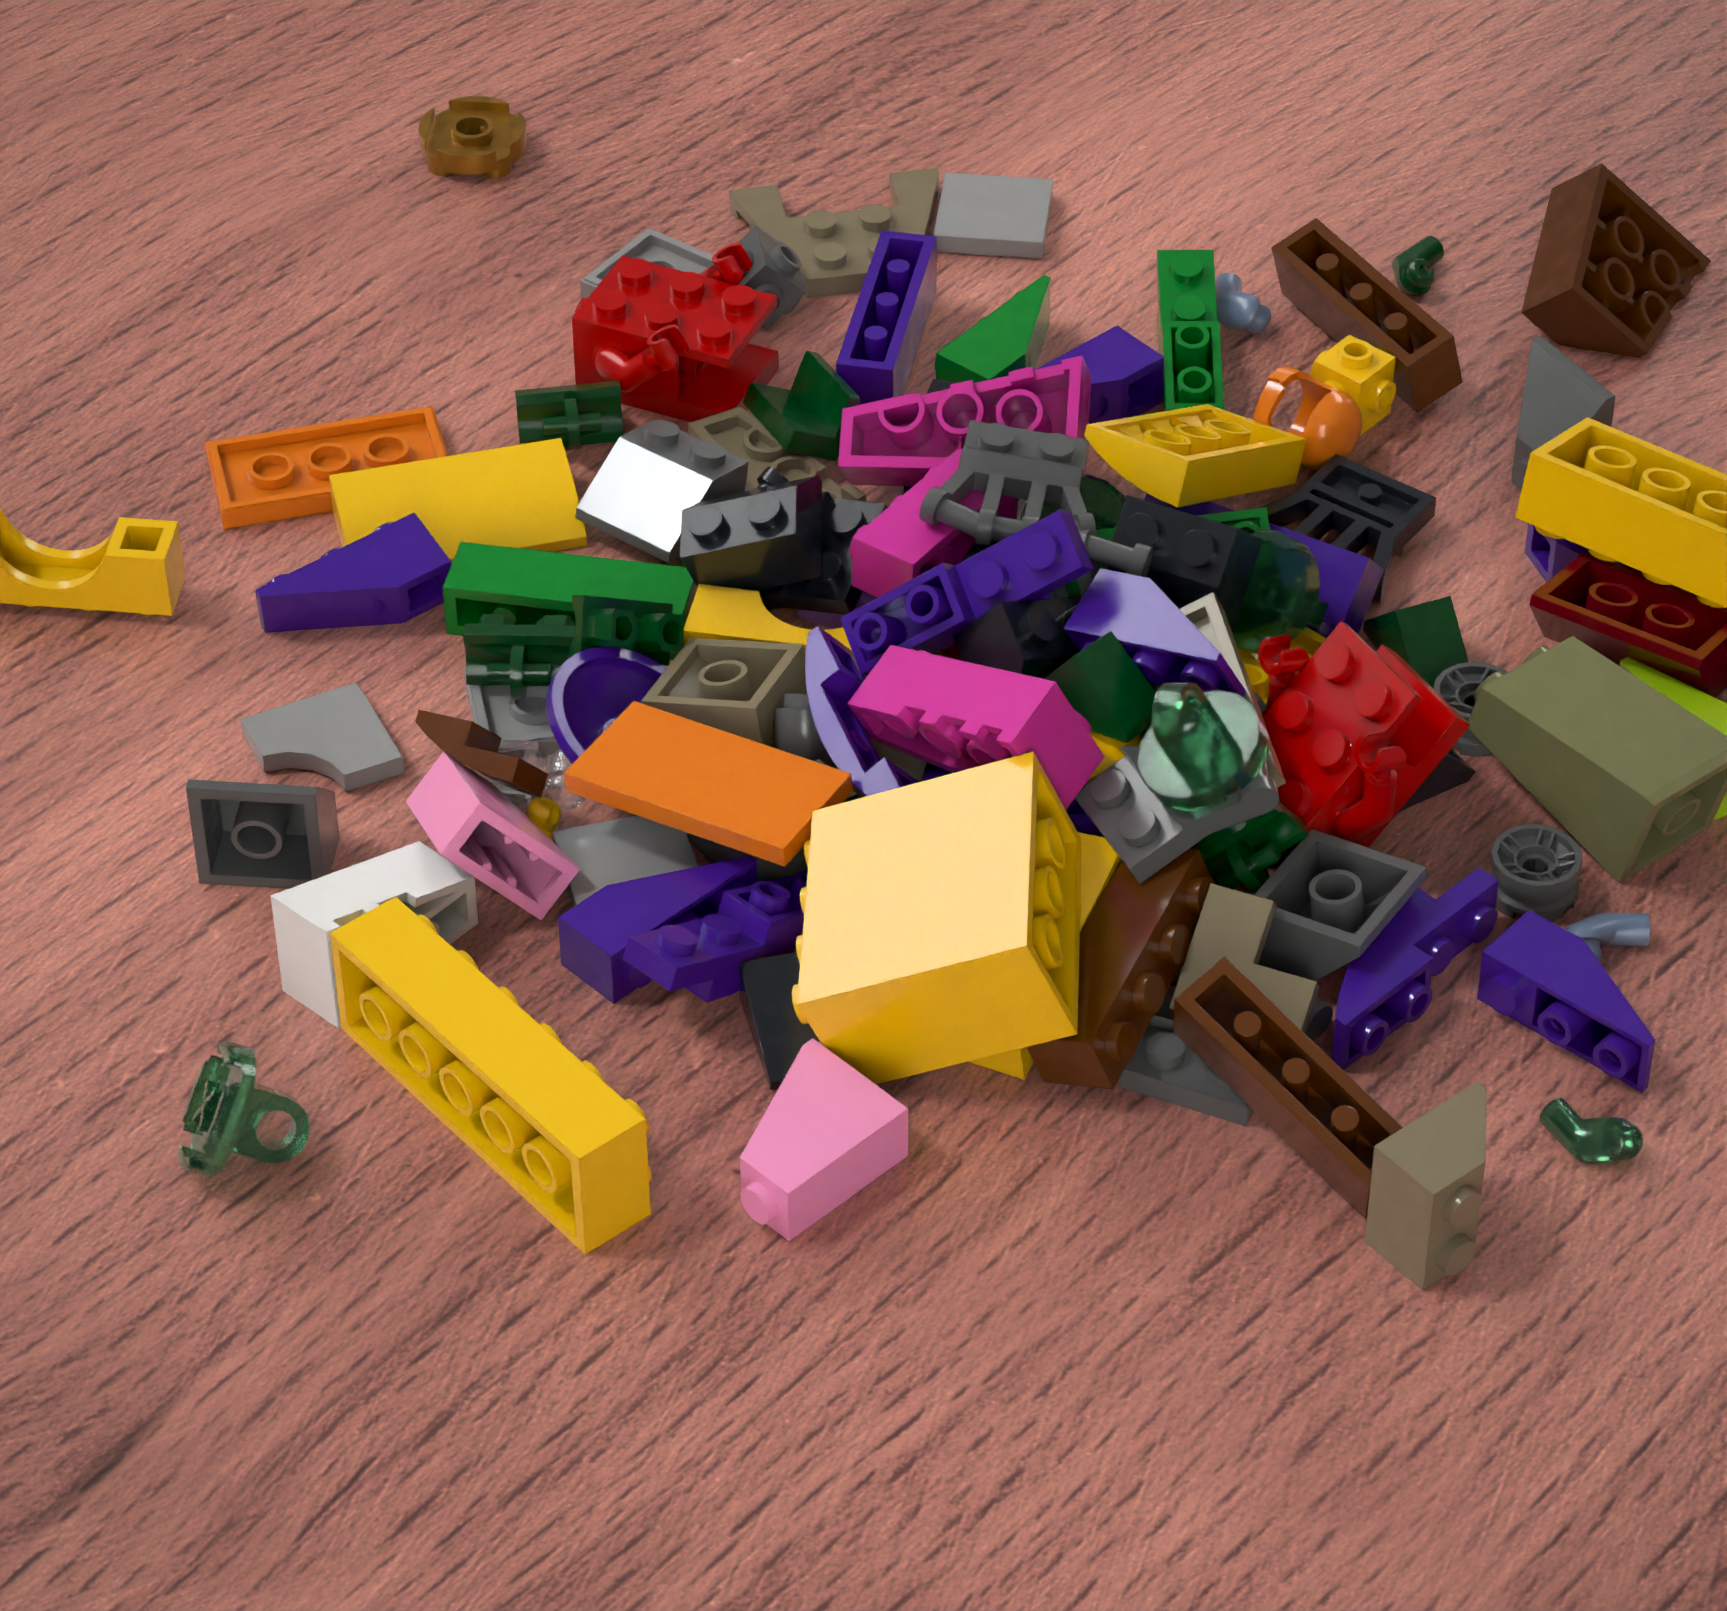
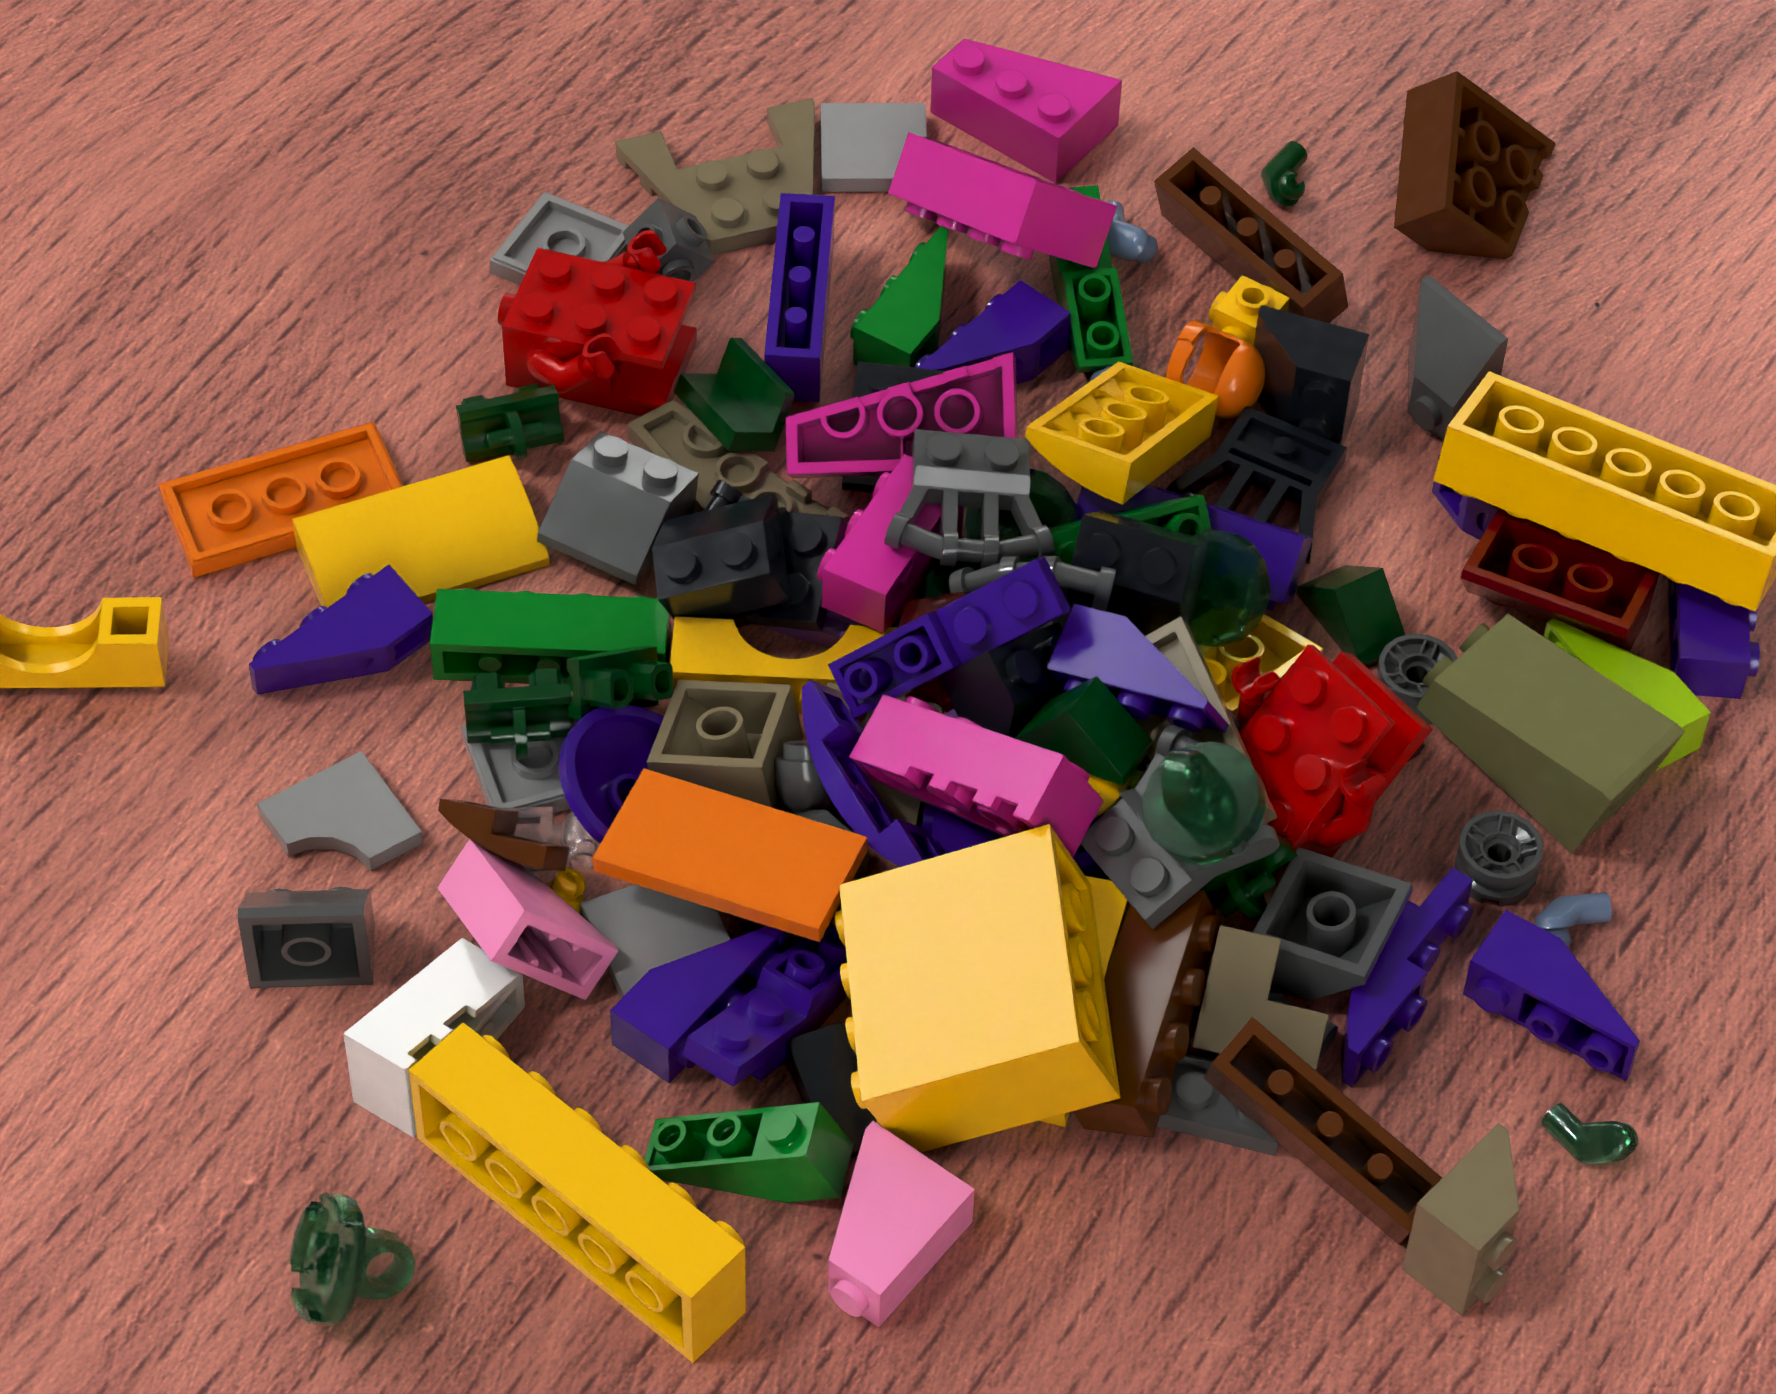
camera: 10 degrees left, 10 degrees up
(472, 137) = (334, 115): pearl gold plate -> none
(693, 1065) = (756, 1152): none -> green slope
(1109, 252) = (999, 203): none -> dark pink wedge
(1155, 185) = (1025, 105): none -> dark pink wedge
(1408, 422) = (1310, 372): none -> black slope

